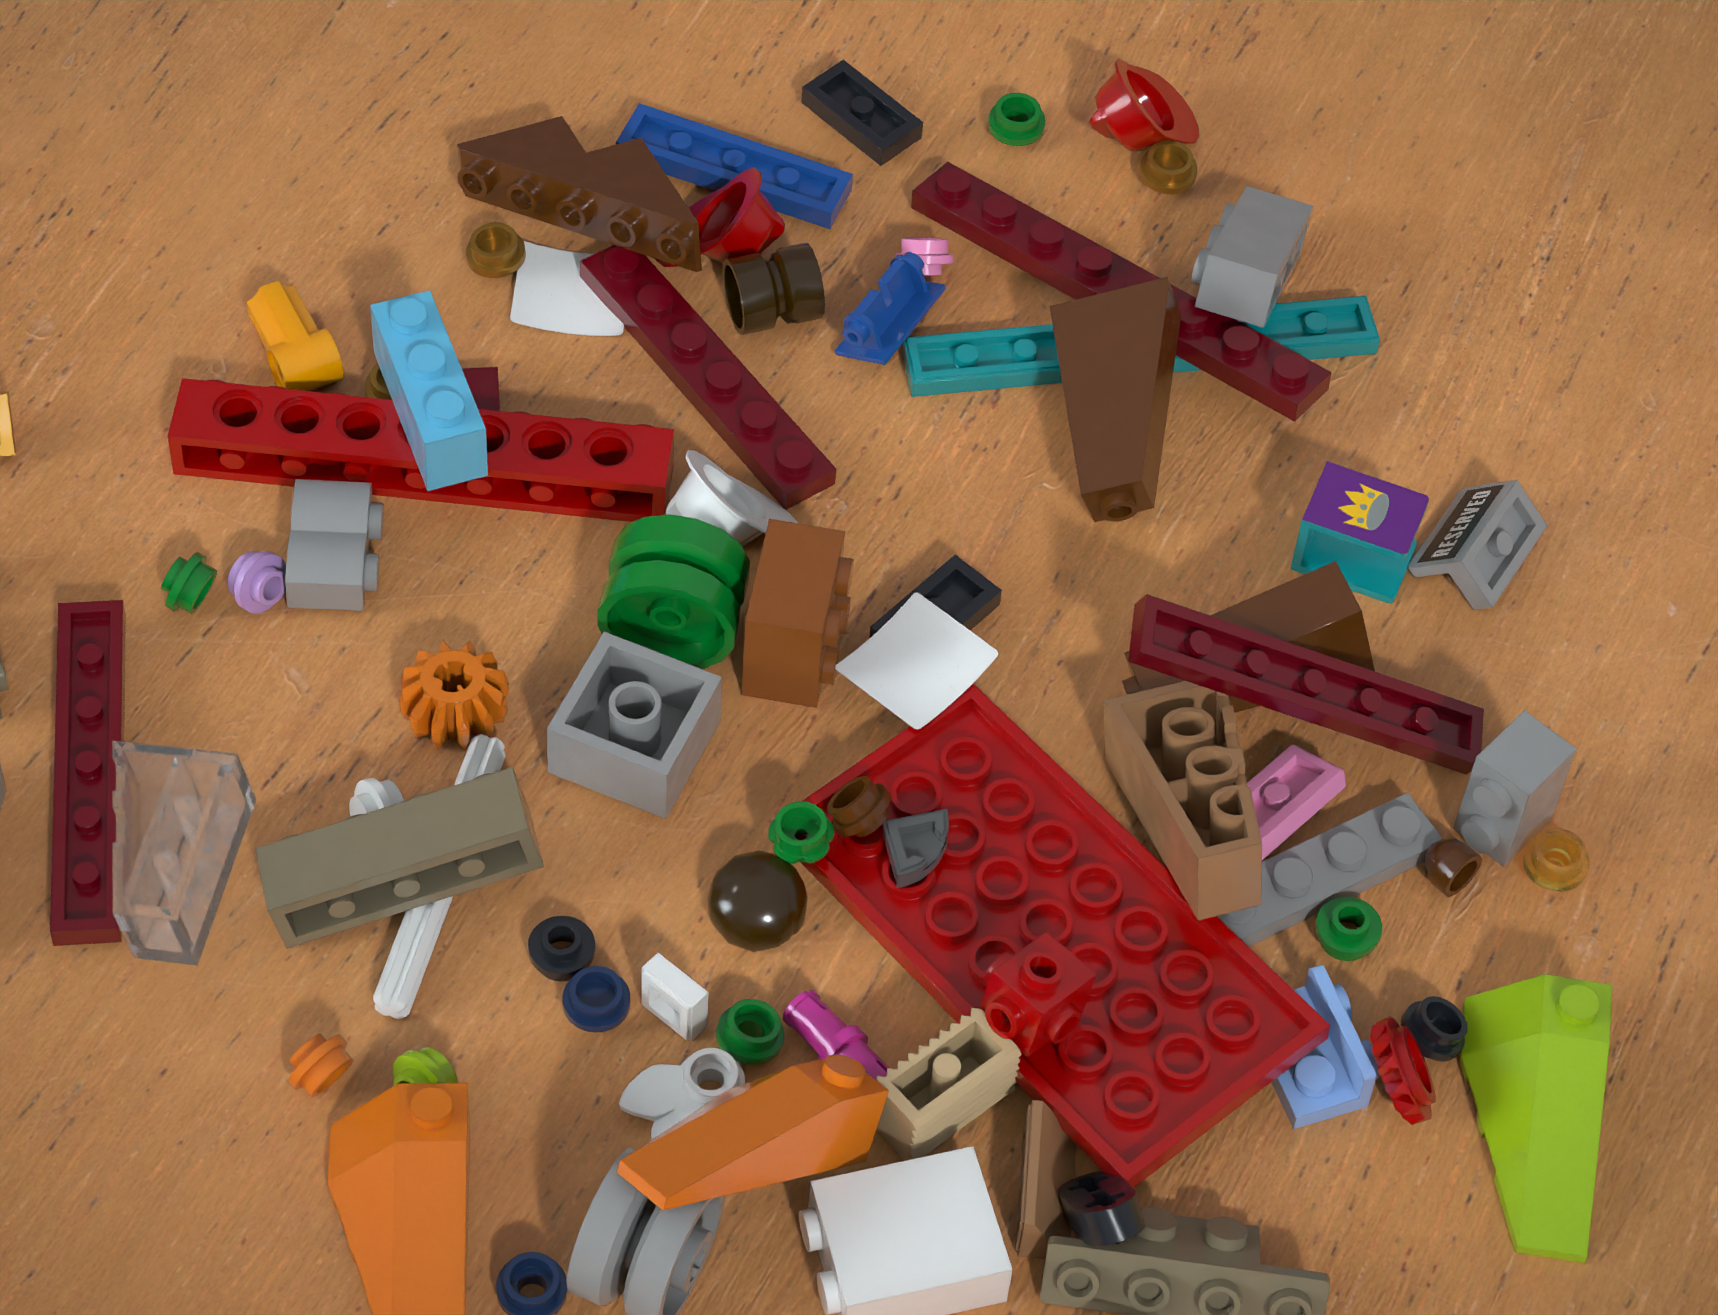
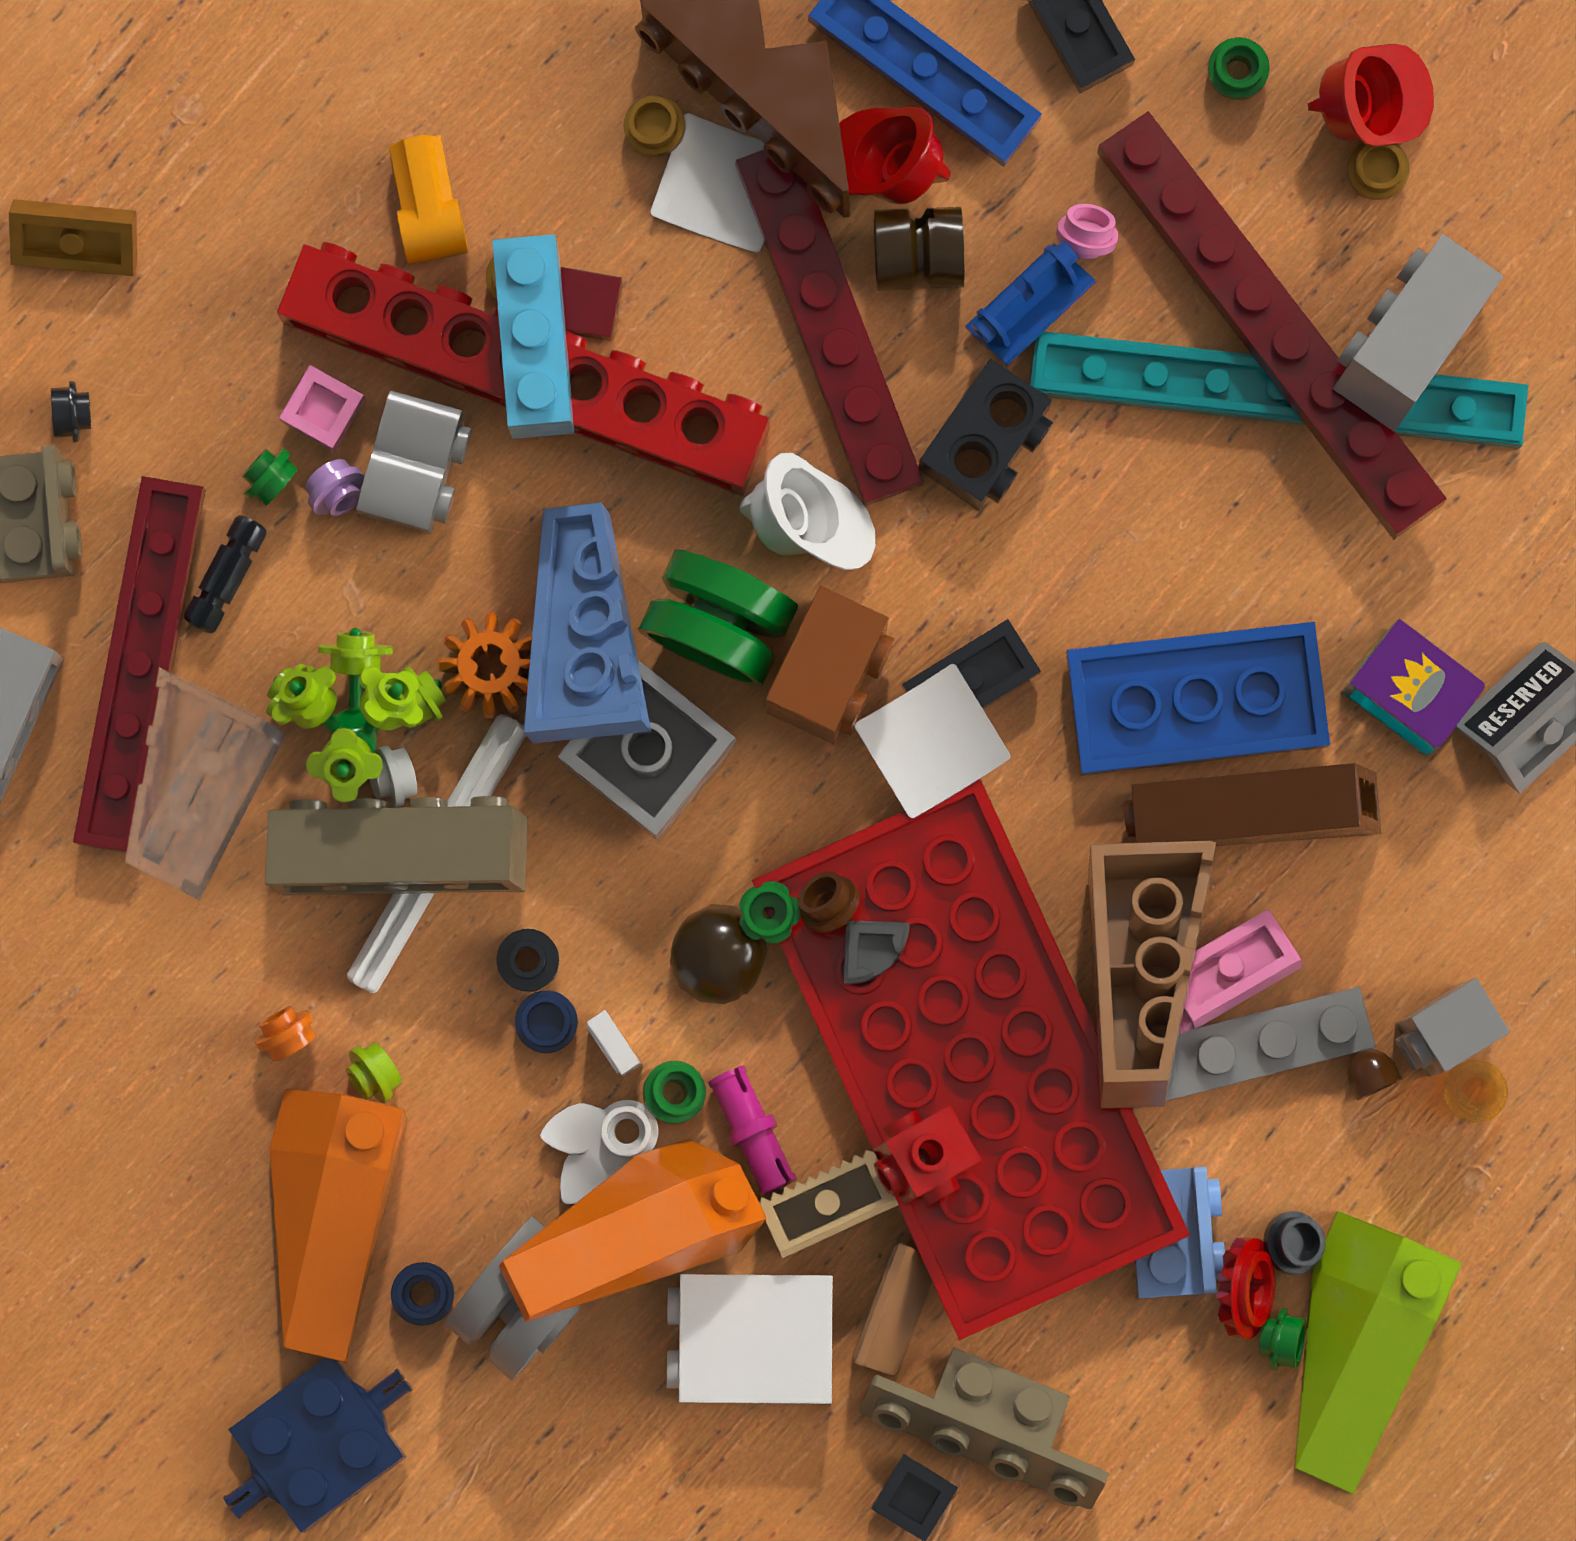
camera: 20 degrees right, 30 degrees up
(161, 678) = (225, 574): none -> black axle
(229, 520) = (322, 408): none -> bright pink plate
(328, 764) = (387, 703): none -> lime plant
(543, 632) = (582, 644): none -> medium blue wing
(884, 420) = (973, 428): none -> black brick
(1101, 1208) = (919, 1360): black beam -> none
(1117, 387) = (1220, 471): reddish brown slope -> none
(1196, 562) = (1197, 698): none -> blue plate
(1305, 684) = (1286, 879): dark red plate -> none
(1343, 942) = (1235, 1122): green plate -> none
(1458, 1122) = (1283, 1340): none -> green plate

